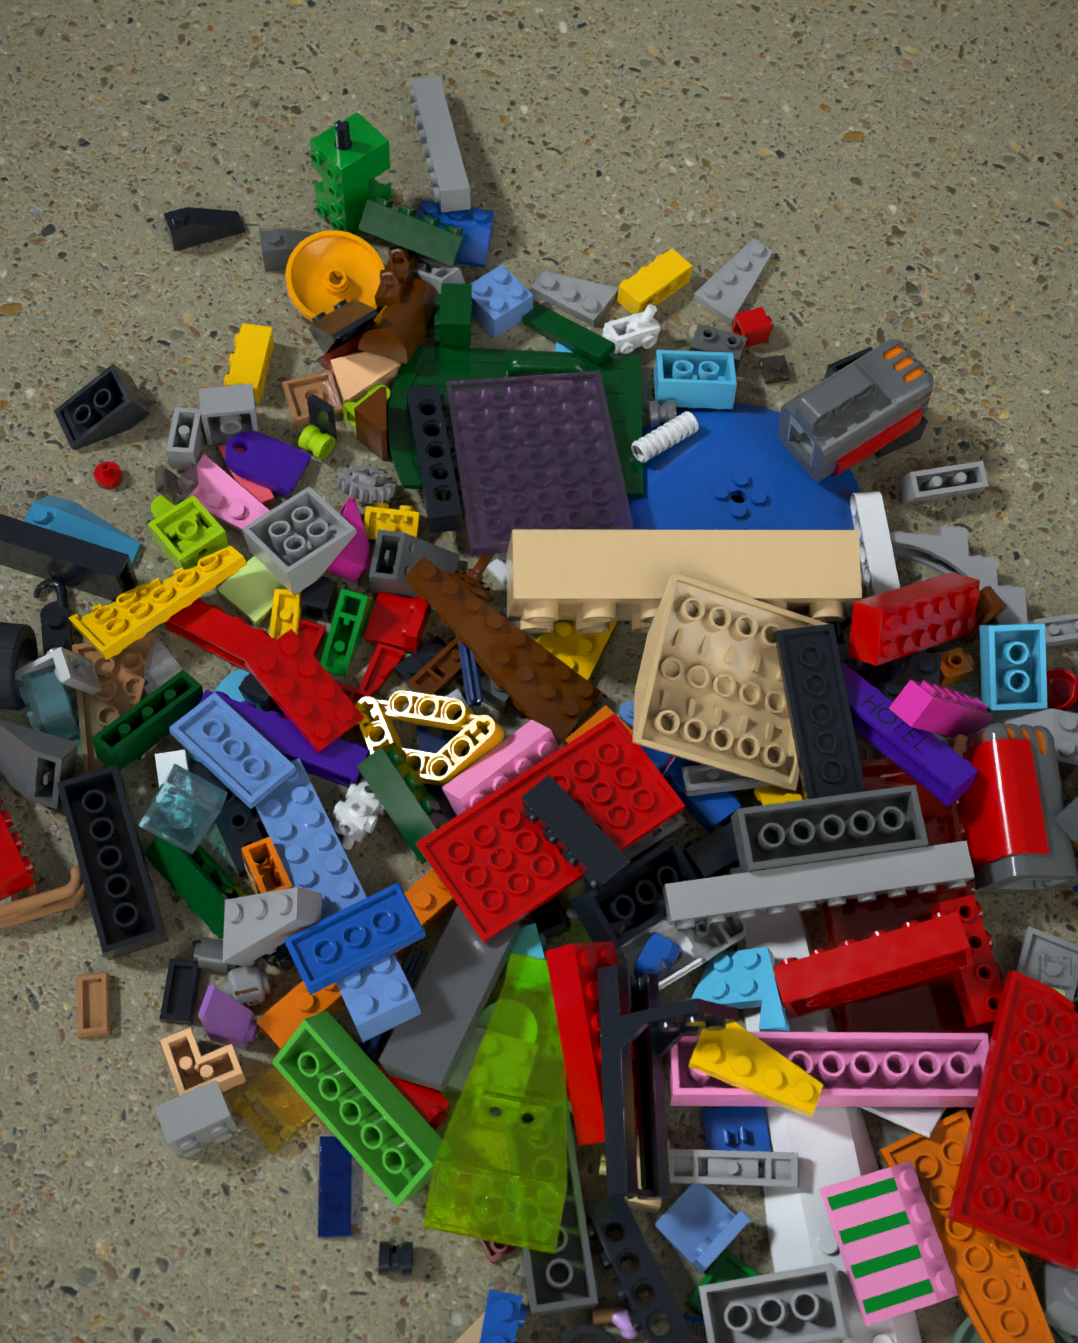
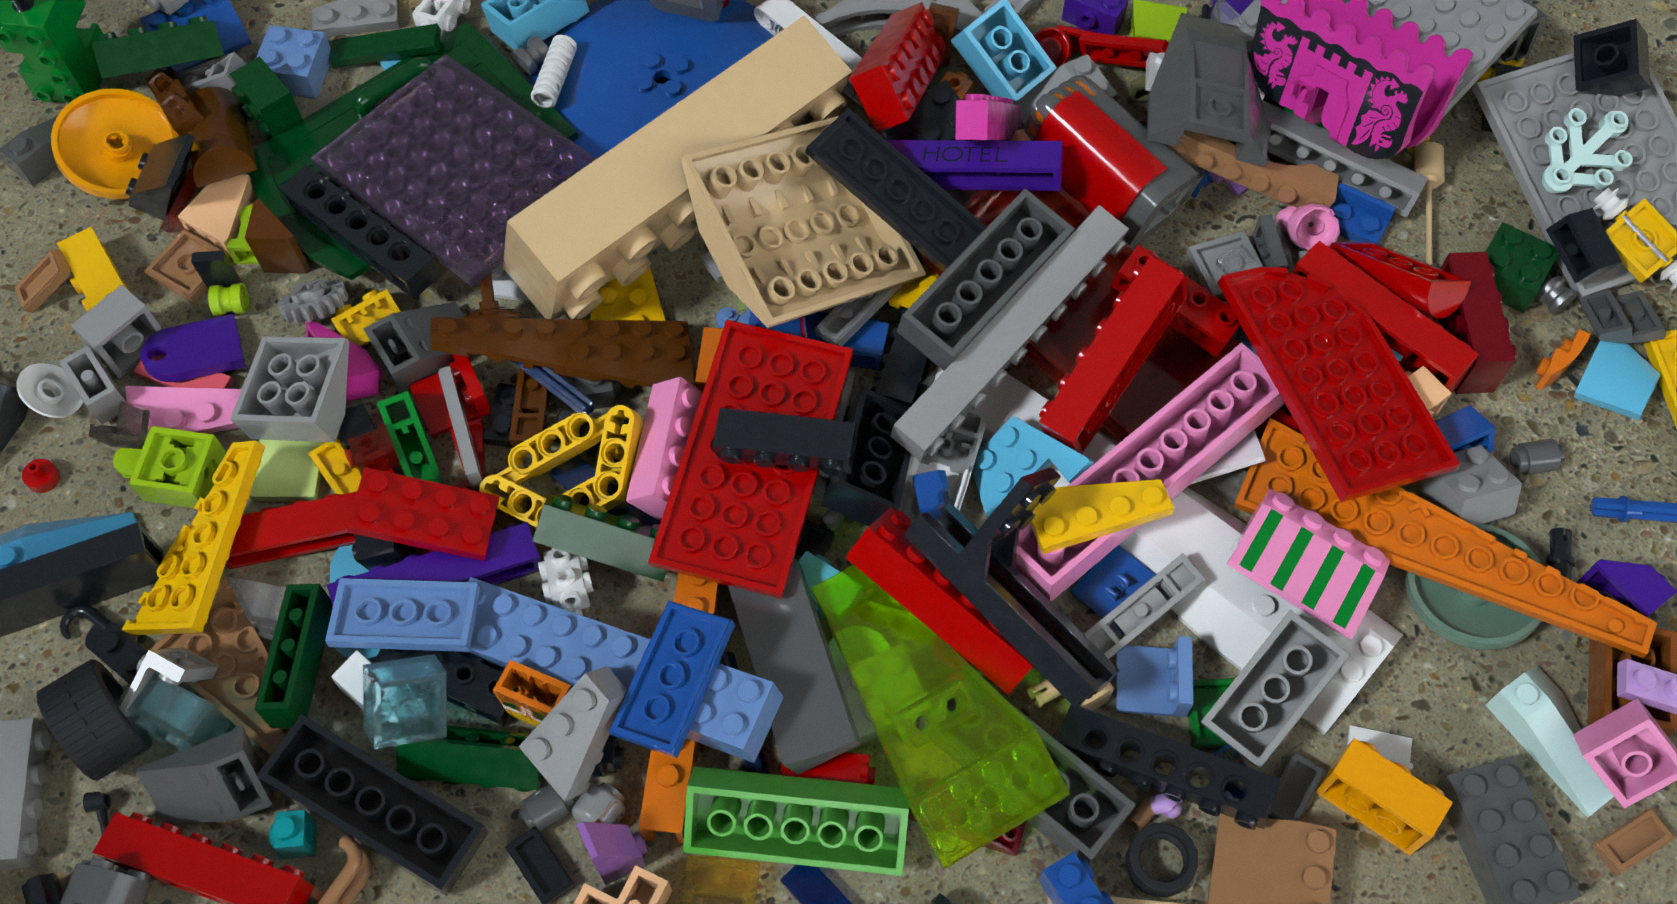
camera: 35 degrees left, 0 degrees up
(49, 836) = (293, 834): none -> teal brick
(157, 410) = (48, 391): none -> white dish
(214, 342) = (42, 280): none -> medium nougat tile
(313, 620) = (372, 451): none -> clear red brick
(383, 649) = (461, 427): none -> light grey tile

